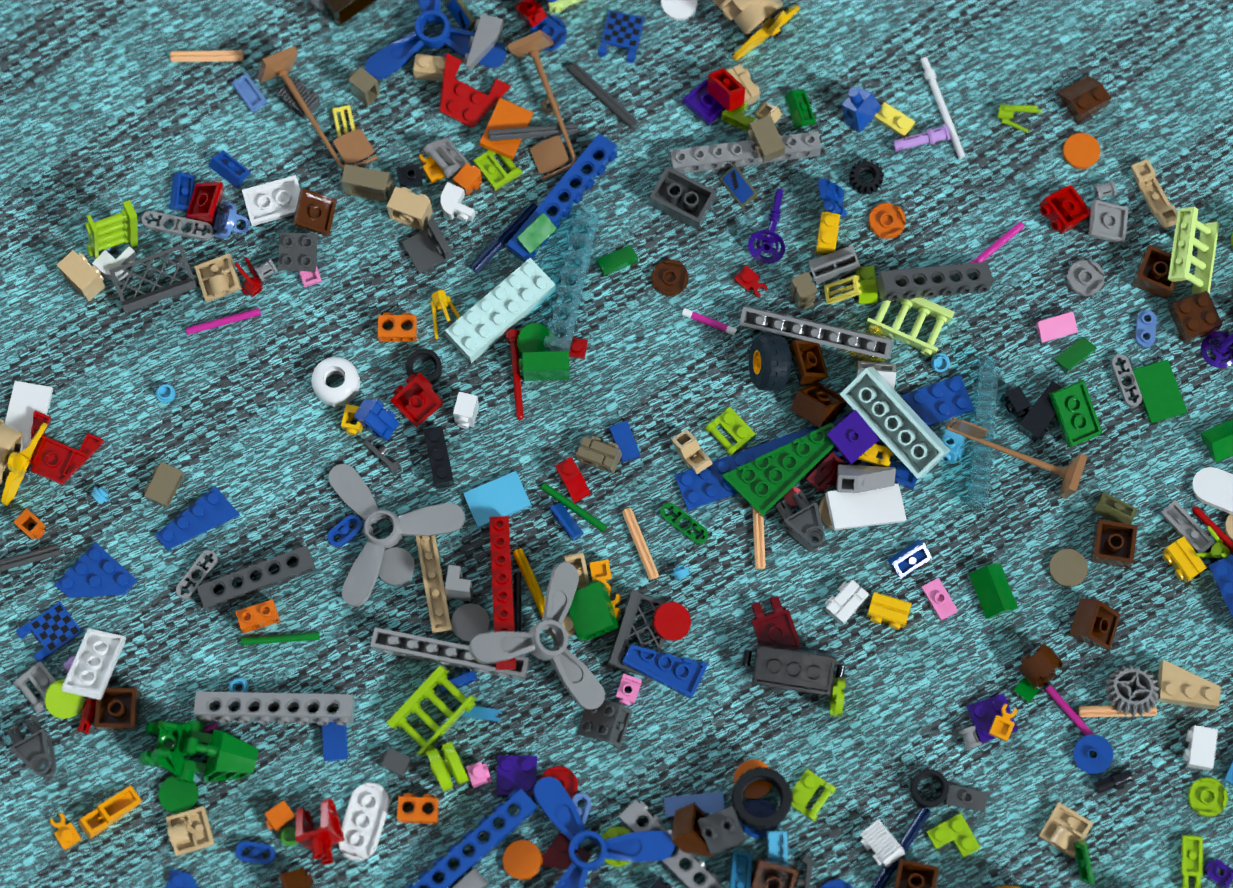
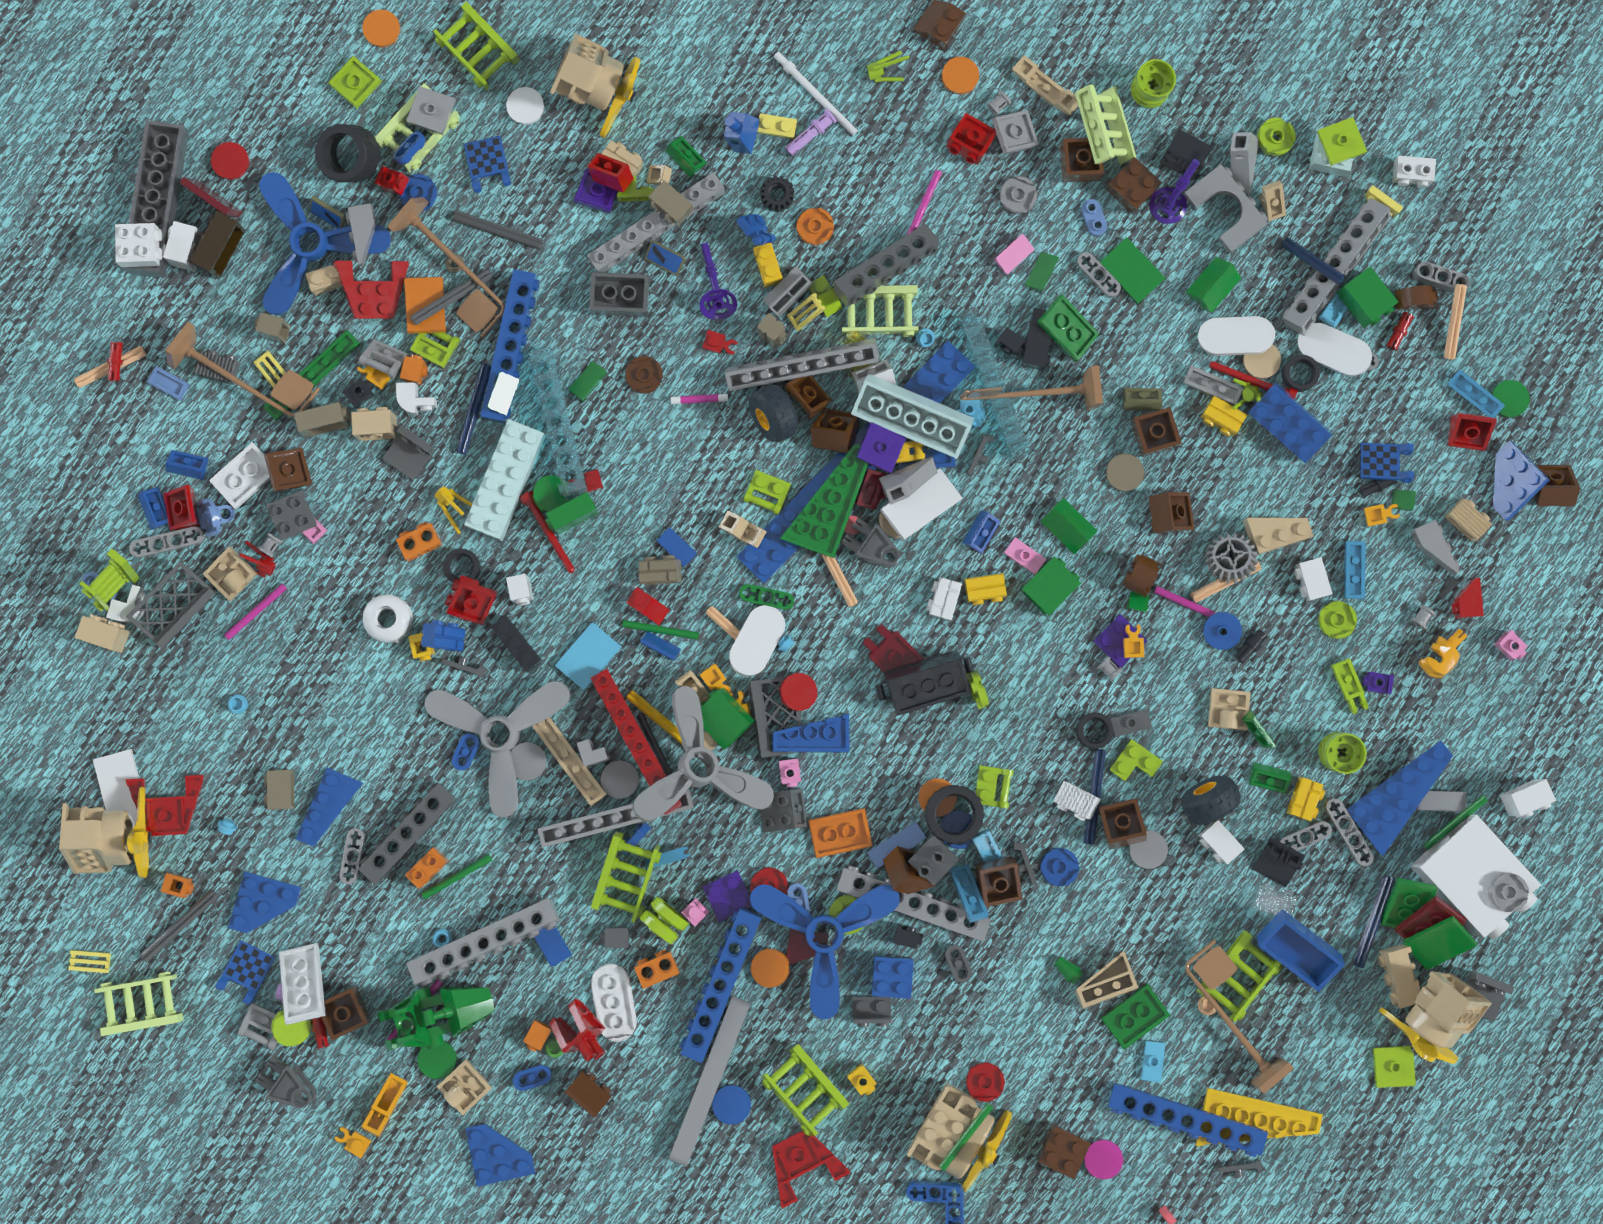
camera: 30 degrees left, 10 degrees up
(213, 52) = (115, 361): none -> red pin
(388, 139) = (321, 366): none -> green tile
(647, 768) = (840, 833): none -> orange tile
(656, 557) = (757, 640): none -> white tile
(939, 489) = (979, 457): none -> dark grey piece
(951, 637) = (1051, 586): none -> green brick

